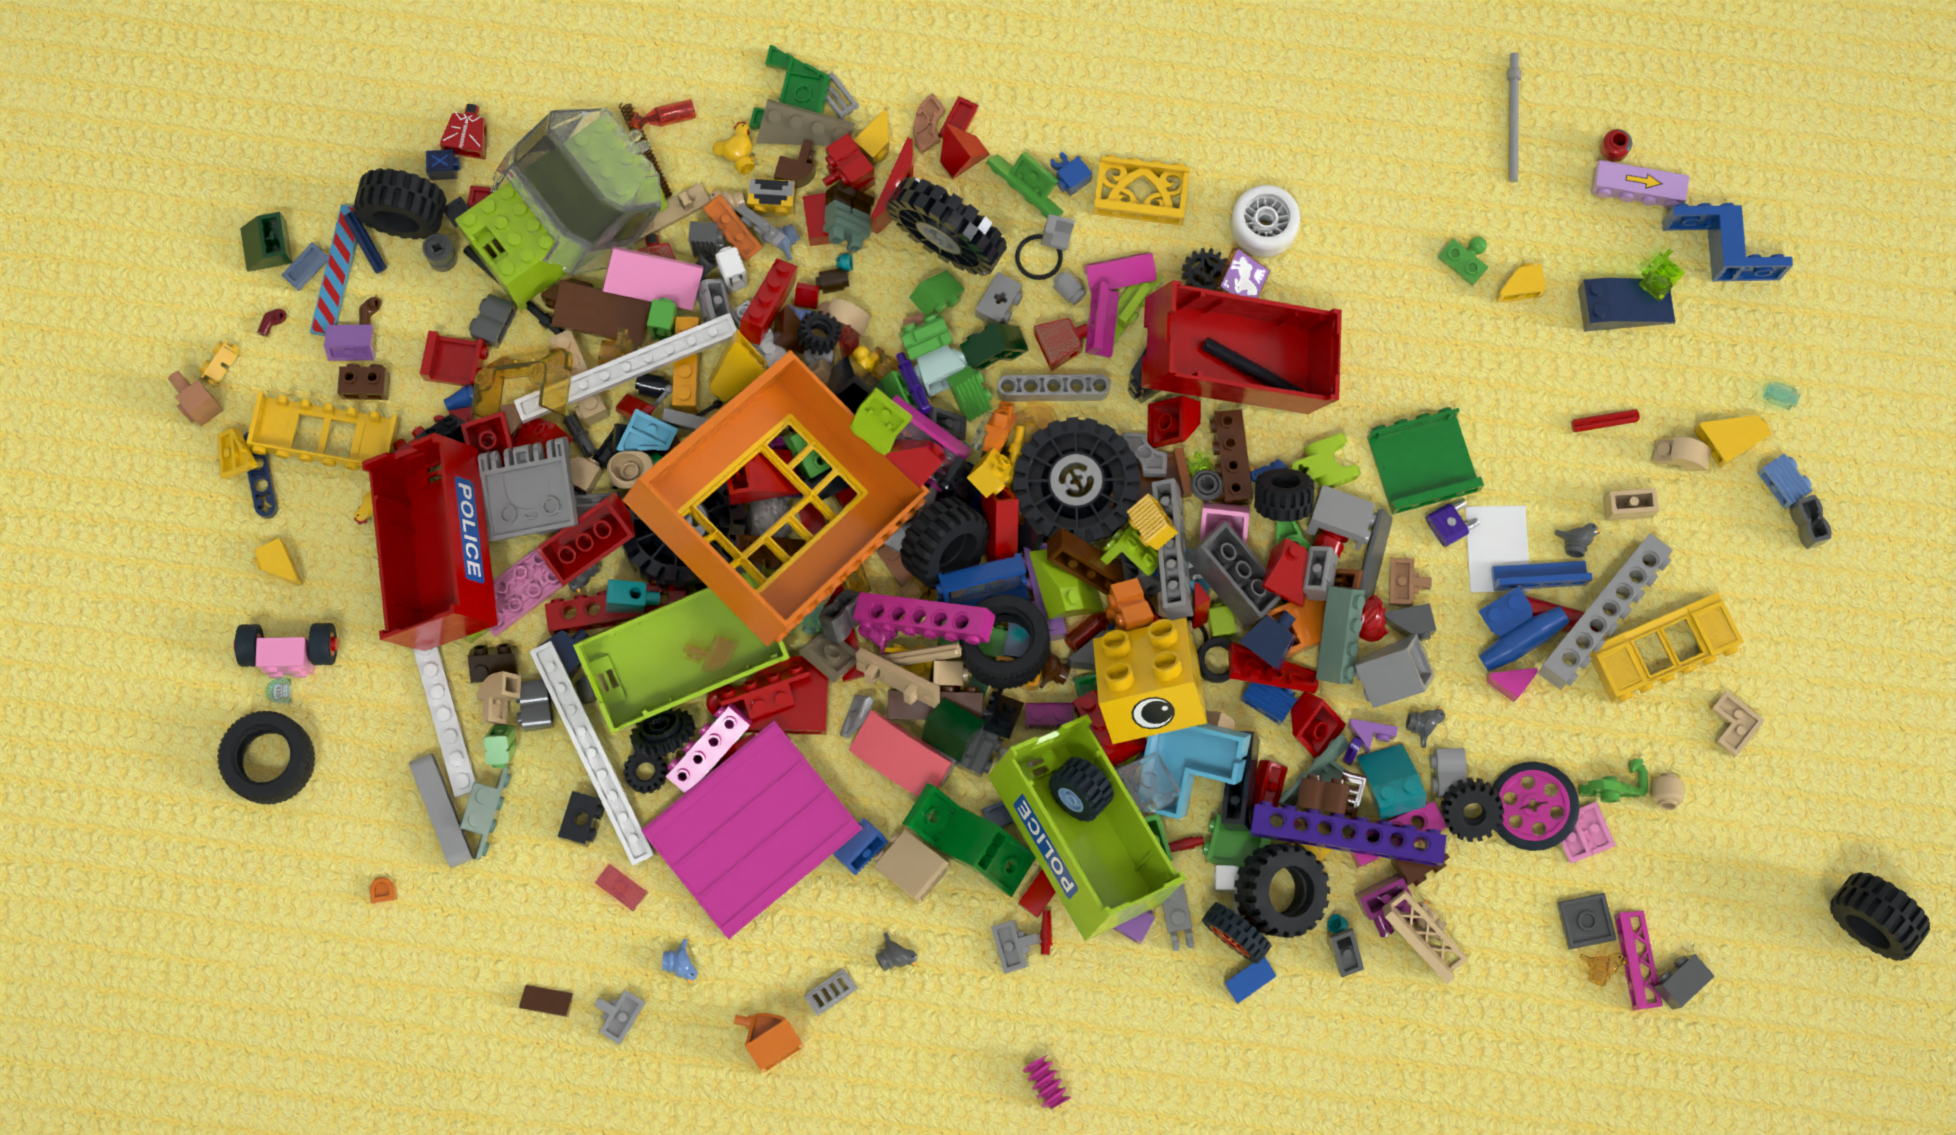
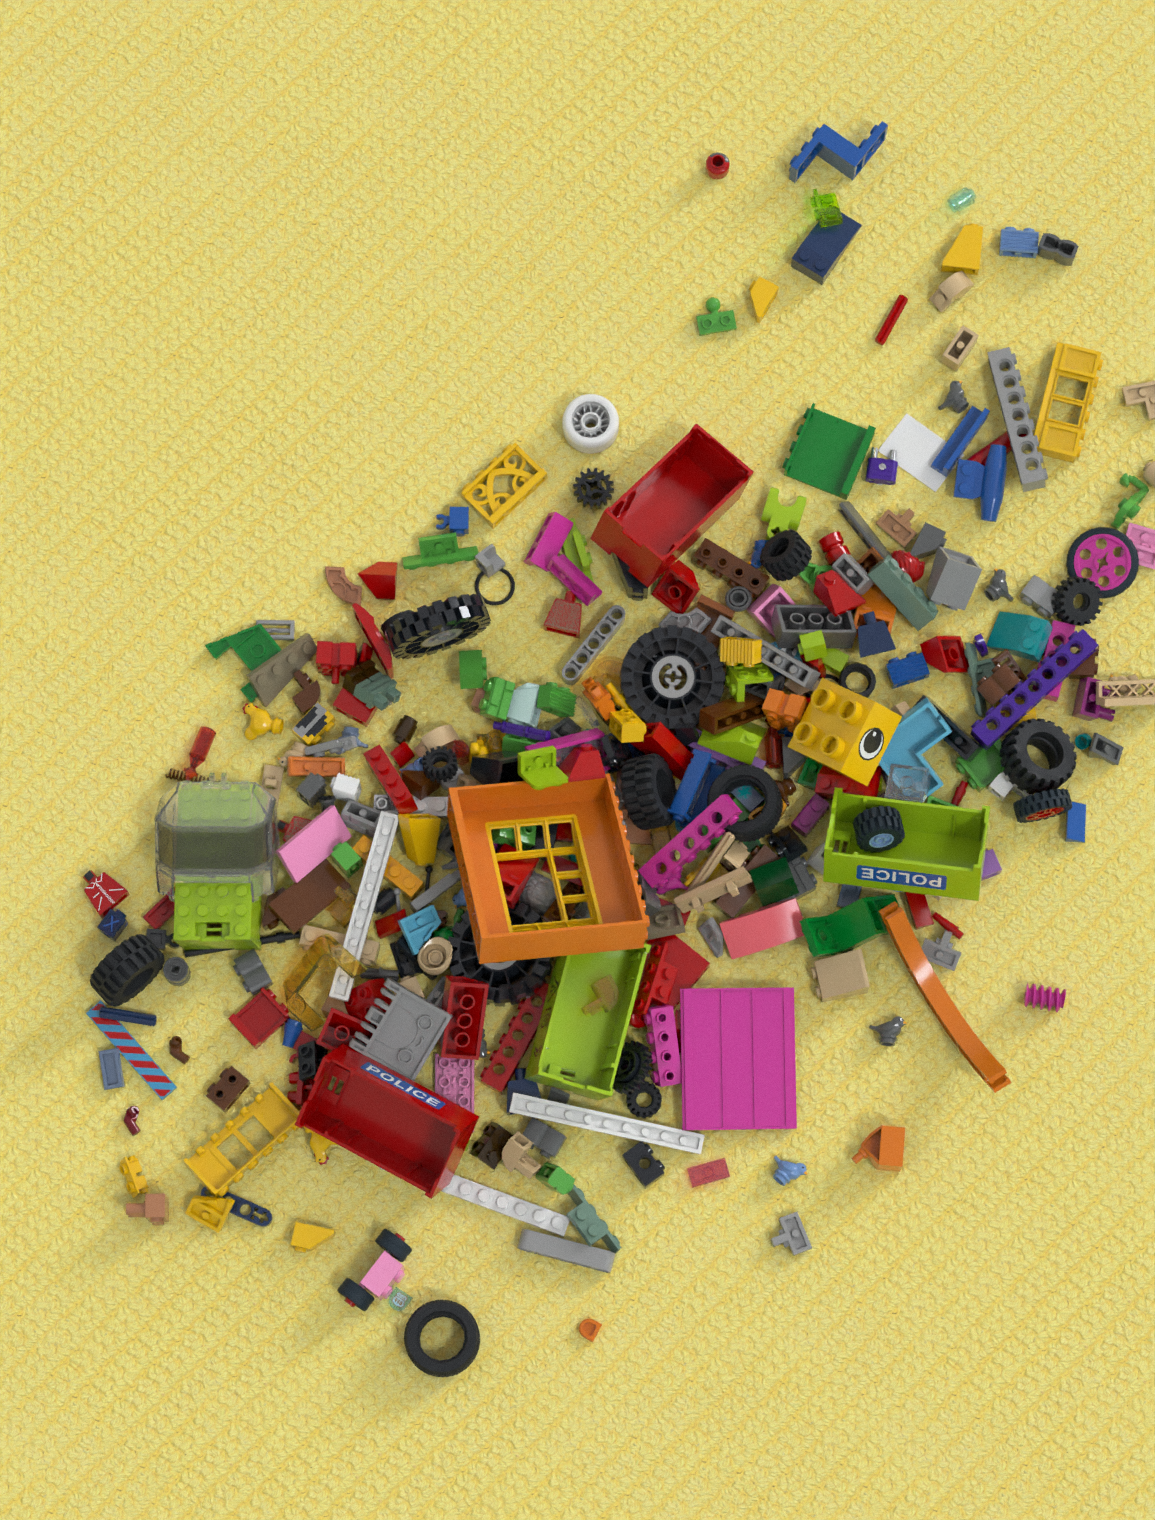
camera: 50 degrees left, 0 degrees up
(266, 242) = (73, 1083): dark green slope -> none
(349, 342) = (191, 1077): medium lavender panel -> none
(546, 1001) = (746, 1275): reddish brown slope -> none
(620, 600) = (523, 1020): teal torso -> none
(835, 999) = (881, 1105): light grey slope -> none
(845, 261) = (397, 712): teal hinge -> none
(861, 847) = (804, 998): blue brick -> none
(874, 139) = (329, 626): yellow slope -> none
(875, 189) = (364, 654): none -> red slope
(960, 115) = (356, 562): red tile -> none
(961, 983) = (939, 1001): none -> orange piece
(993, 344) = (536, 659): dark green brick -> none
(1000, 288) = (511, 644): light grey brick -> none
(1069, 288) = (533, 582): light grey brick -> none
(1178, 917) = (1003, 836): light grey hinge -> none
(1201, 464) = (720, 594): clear neon green tile -> none
(1212, 586) = (812, 646): none -> lime brick
(1242, 275) = (617, 468): tile -> none
(1247, 366) = (685, 510): black axle -> none
(1249, 667) = (881, 664): red wing -> none
(1269, 782) = (960, 712): red slope -> none
(1342, 515) = (826, 530): light grey panel -> none
(1365, 730) = (975, 626): medium lavender slope -> none
(1511, 682) = (1015, 513): dark pink slope -> none
(1514, 77) = (617, 190): light grey bar -> none
(1639, 184) = (754, 173): lavender brick -> none

